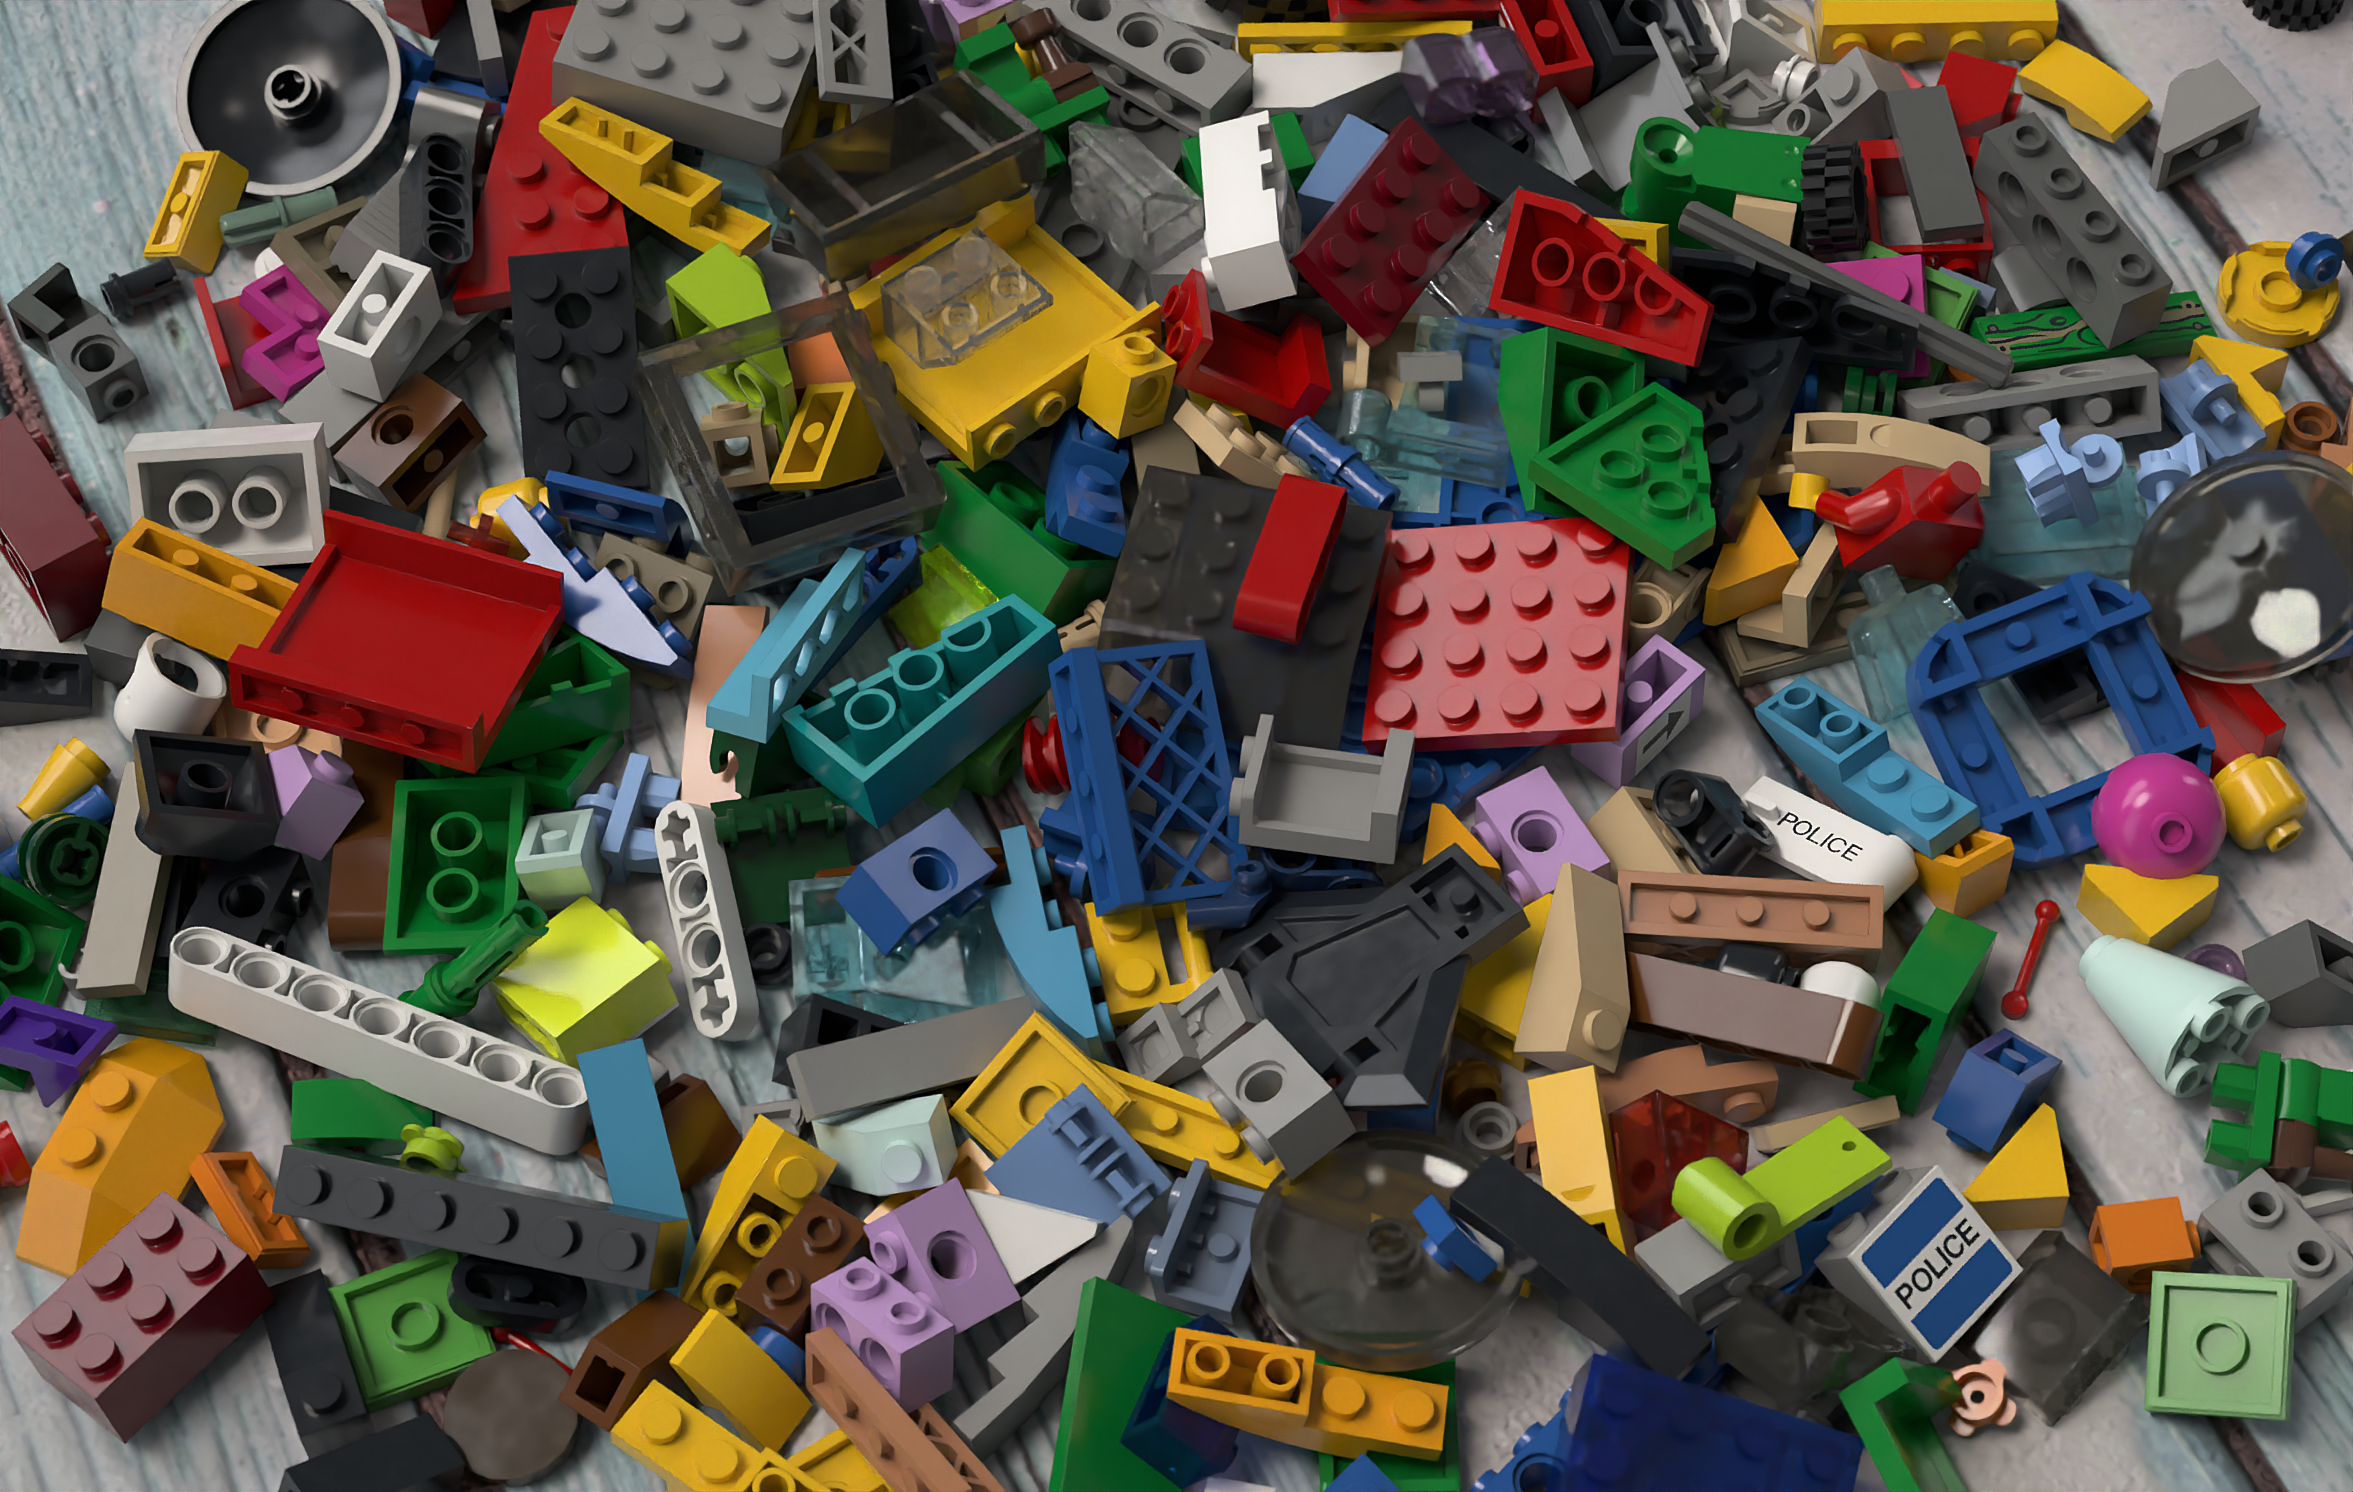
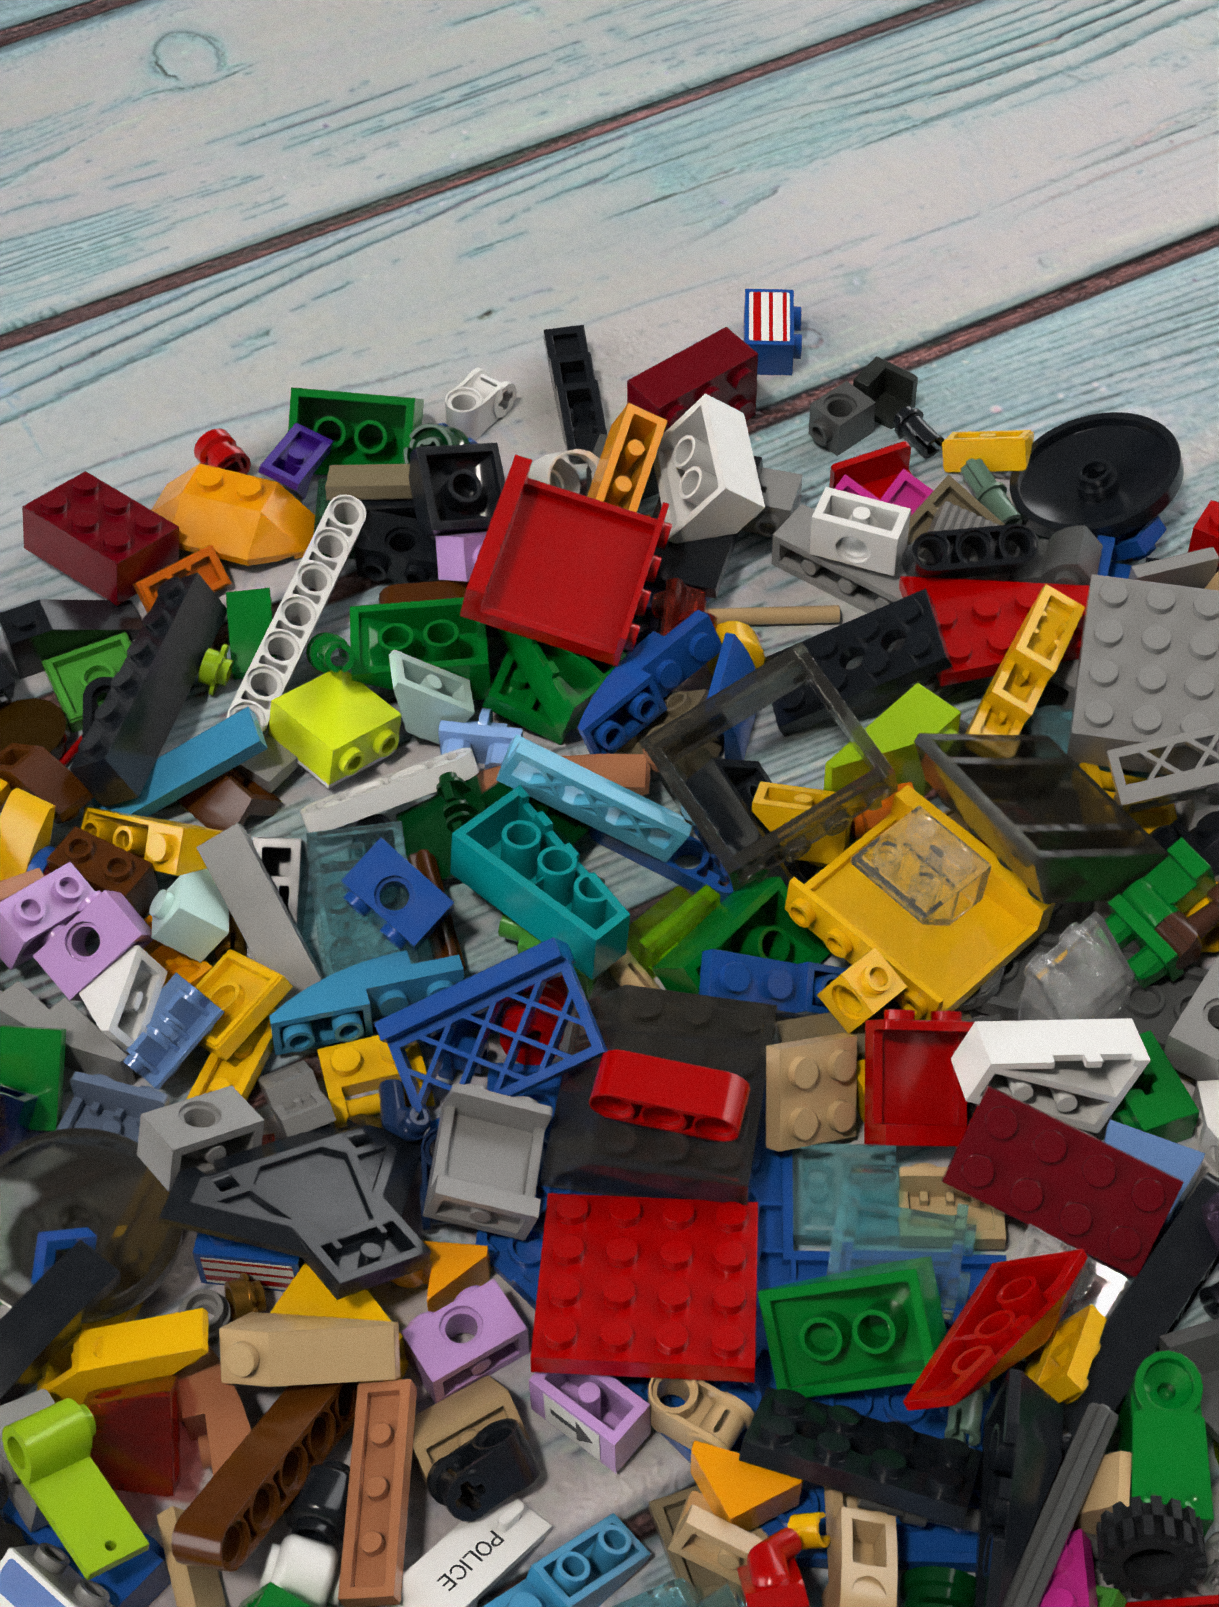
camera: 85 degrees right, 5 degrees down
(64, 779) = (509, 446): yellow cone -> none
(410, 444) = (786, 582): reddish brown brick -> none
(744, 468) = (799, 759): tan brick -> none
(1340, 465) = (818, 1165): blue pin -> none
(1429, 372) = (911, 1216): light grey tile -> none
(1638, 475) = (789, 1368): green plate -> none

